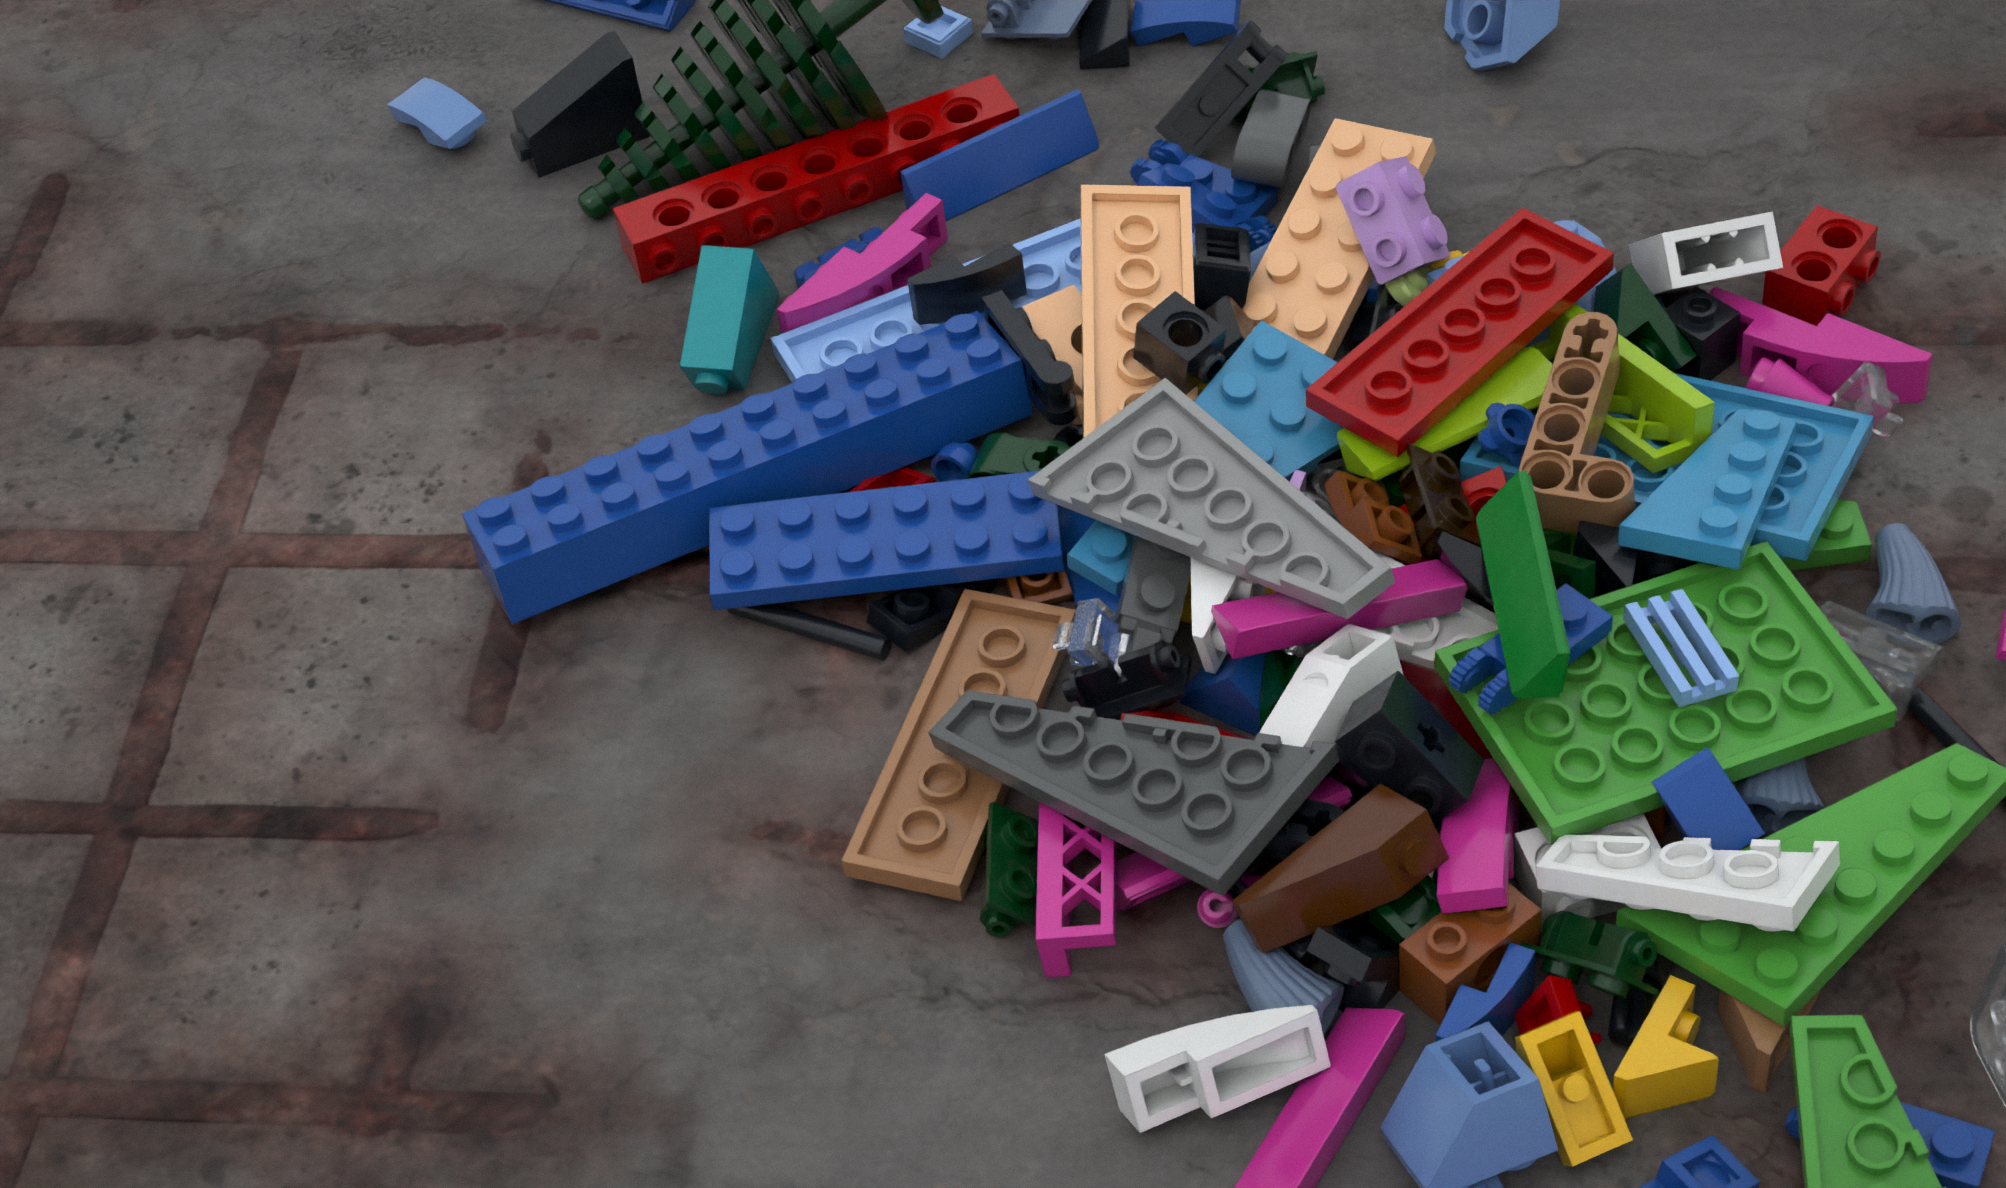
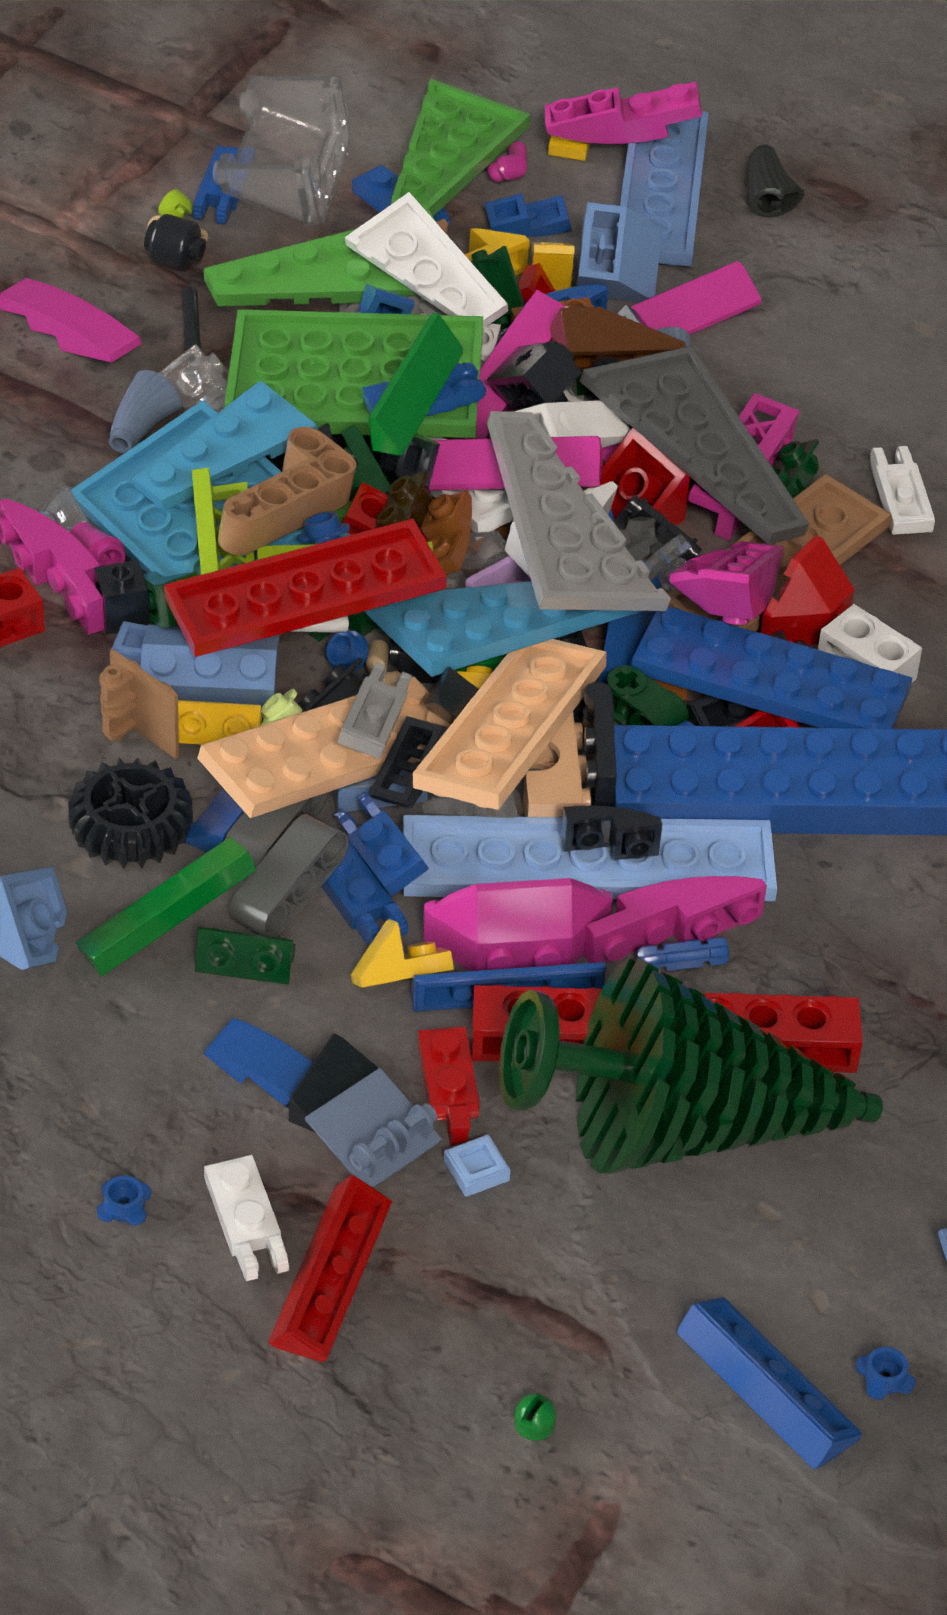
camera: 165 degrees left, 0 degrees up
(499, 22) = (886, 1361): none -> blue plate
(580, 109) = (849, 1179): black slope -> none
(727, 319) = (801, 916): teal slope -> none
(787, 653) = (870, 641): none -> white brick
(847, 926) = (902, 492): none -> white hinge
(884, 674) = (810, 596): none -> red slope
(985, 572) = (732, 581): none -> dark pink wedge
(996, 57) = (449, 1079): none -> red hinge
(1017, 189) = (515, 923): none -> dark pink wedge
(1107, 128) = (387, 963): none -> yellow slope
(1180, 343) = (502, 661): black brick -> none
(1216, 1064) = (731, 335): white slope -> none
(1220, 92) = (299, 924): black plate -> none
(1291, 269) = (374, 713): none -> light grey hinge
(1366, 66) = (166, 906): none -> green slope
(1393, 219) = (265, 698): lavender bracket -> none
(1487, 146) = (130, 812): none -> black gear
(1556, 194) = (138, 702): none -> medium nougat hinge
(1670, 617) = (337, 347): light blue tile -> none
(1707, 253) = (87, 611): white slope -> none

